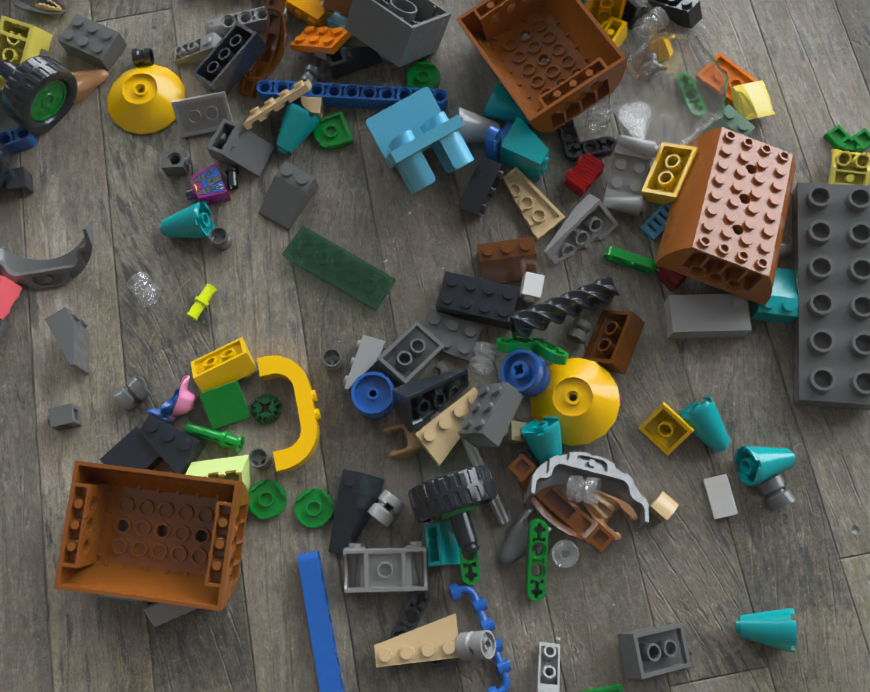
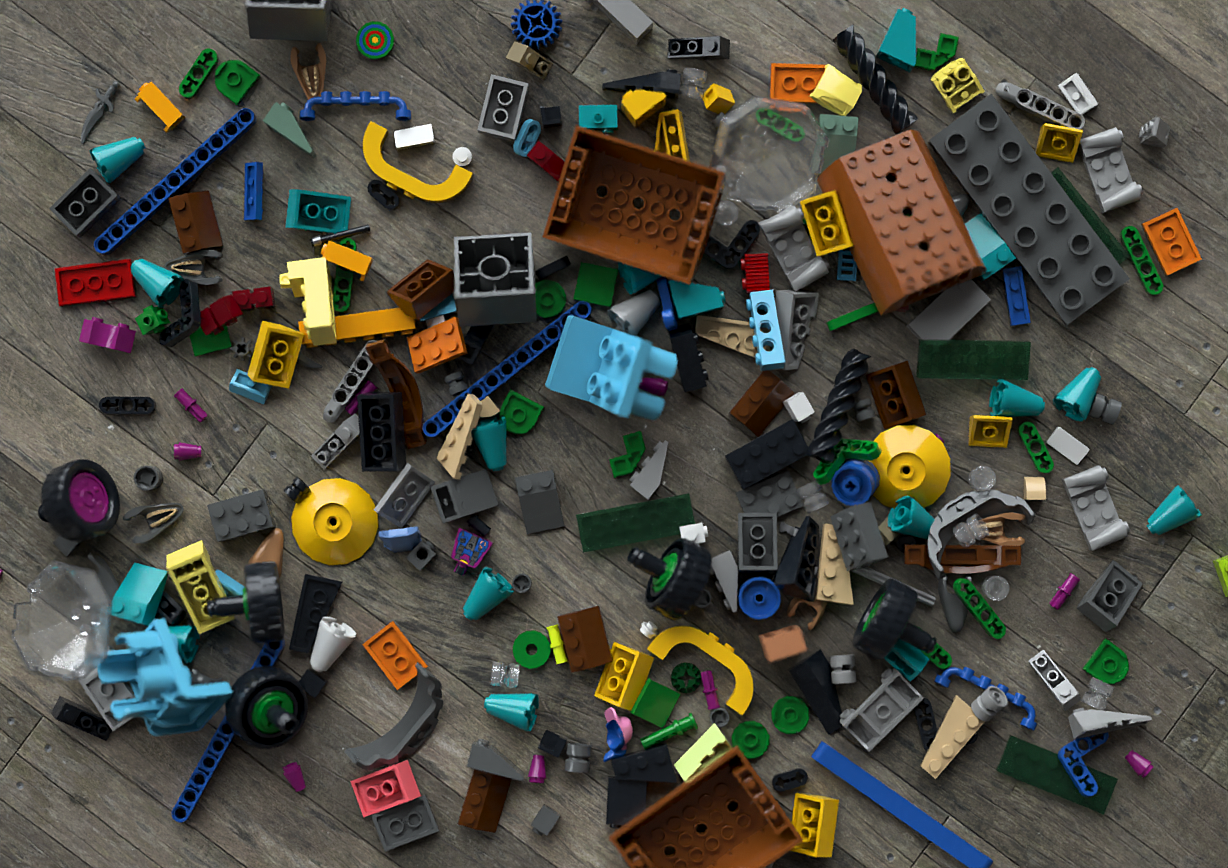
camera: 50 degrees left, 15 degrees up
(37, 364) = (484, 801): none -> reddish brown slope
(57, 164) = (330, 643): none -> white cone
(72, 137) = (314, 604): none -> black wing
(90, 204) = (394, 654): none -> orange plate
(97, 377) = (537, 770): none -> magenta cone
(126, 319) = (514, 709): none -> teal cone
(126, 368) = (552, 743): none -> black panel
(172, 136) = (401, 539): none -> medium blue slope
(174, 283) = (521, 655): none -> green tile
(222, 313) = (585, 639): none -> reddish brown slope
(248, 613) = (816, 823): none -> yellow slope
(263, 562) = (788, 775): none -> black beam
(273, 348) = (649, 629): none -> white plate
(273, 433) = (709, 689): none -> magenta axle
(324, 318) = (674, 577): none -> black wheel
(355, 437) = (782, 642): none -> nougat brick
(371, 308) = (694, 532): none -> white bracket
(381, 243) = (650, 476): none -> light grey slope
(387, 220) = (635, 448): none -> green tile
(442, 190) = (654, 386): none -> magenta cone
(446, 60) = (553, 267): none -> black beam
(465, 93) = (595, 284): none -> green tile
(556, 211) = (765, 301): none -> medium azure brick
(619, 611) = (1064, 591): none -> magenta axle
(628, 458) = (981, 478): none -> clear wheel
(694, 491) = (1047, 457): none -> green beam
(699, 362) = (973, 359): none -> clear green plate
(702, 565) = (1095, 508): none -> light grey piece
(771, 349) = (1016, 296): none -> blue plate
(786, 110) = (873, 78): none -> black piece
(828, 103) = (900, 41): none -> teal slope

